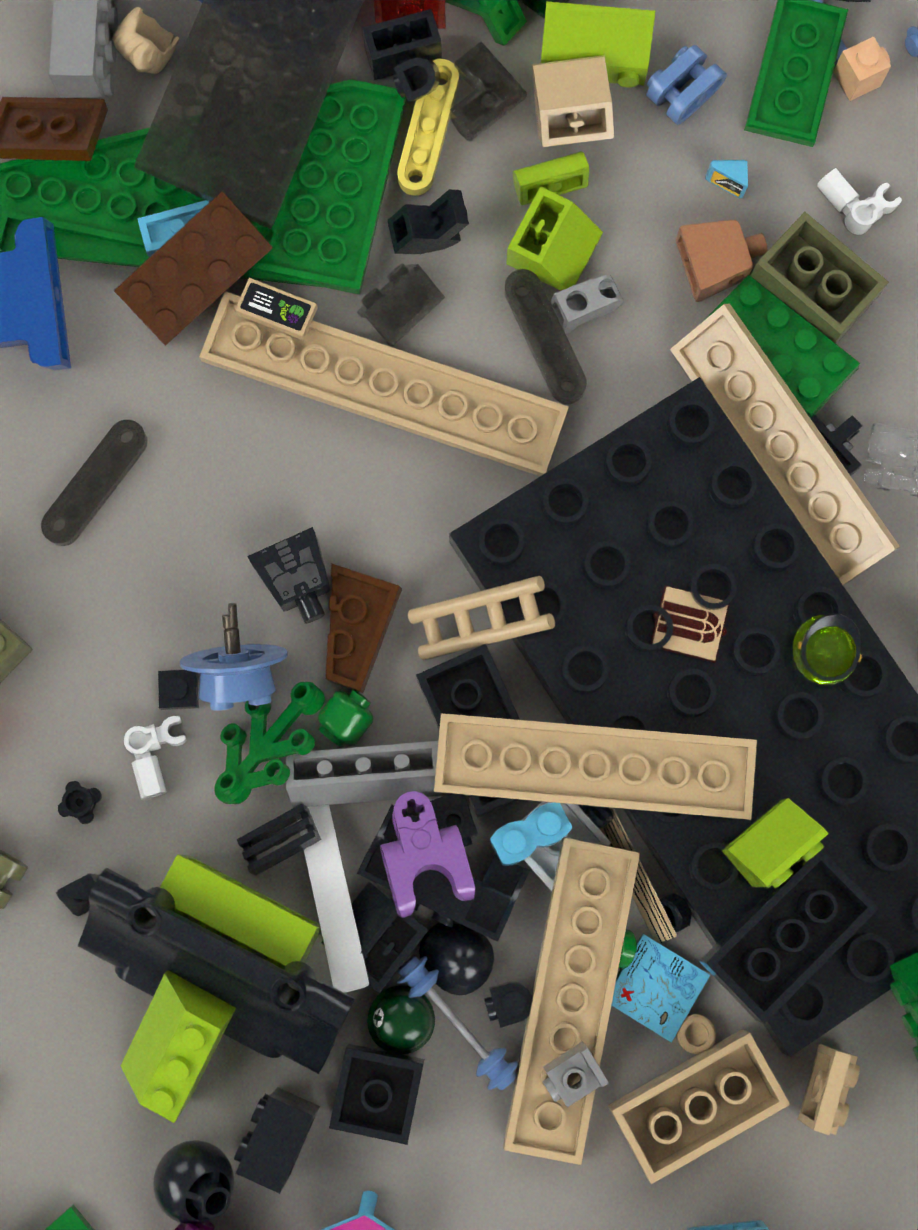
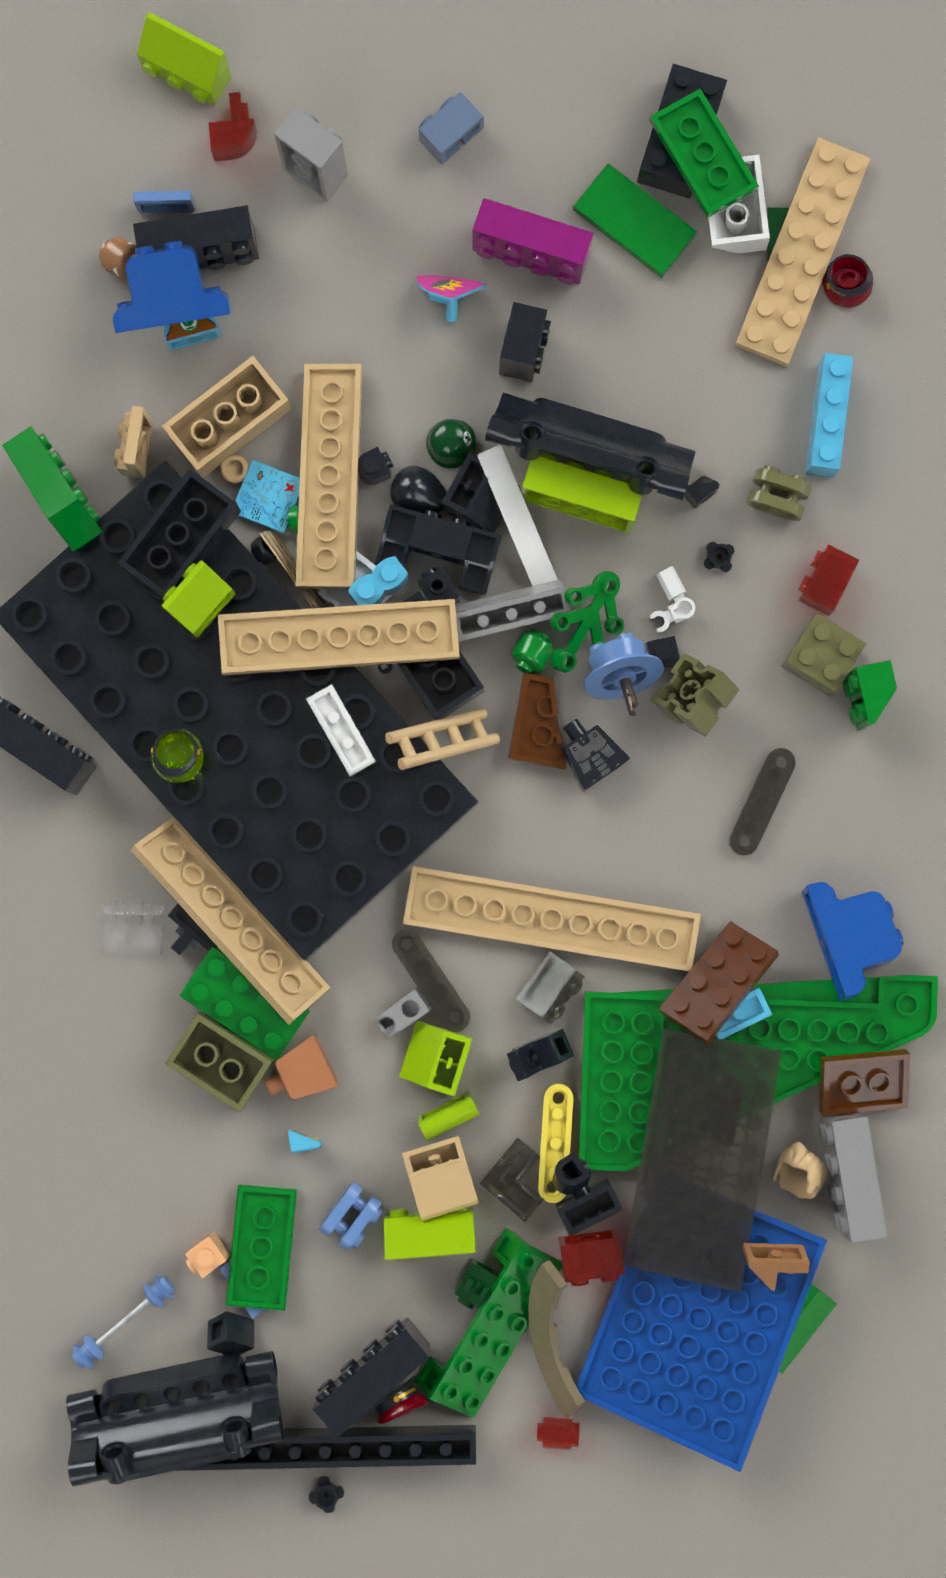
camera: 170 degrees right, 5 degrees up
(147, 621) = (695, 694): none -> olive brick
(174, 1045) = (610, 393): lime slope -> none
(193, 1182) = (576, 303): black brick -> none
(247, 841) = (583, 541): black tile -> none
(276, 308) = (647, 961): tile -> none
(376, 1094) = (458, 386): black brick -> none
(423, 848) = (457, 557): medium lavender piece -> none
(492, 1063) = (379, 422): medium blue axle -> none
(578, 1061) = (319, 429): light grey brick -> none
(610, 645) = (341, 730): none -> white tile
(695, 629) = (279, 757): piece -> none
(859, 214) = (194, 1128): white bar -> none

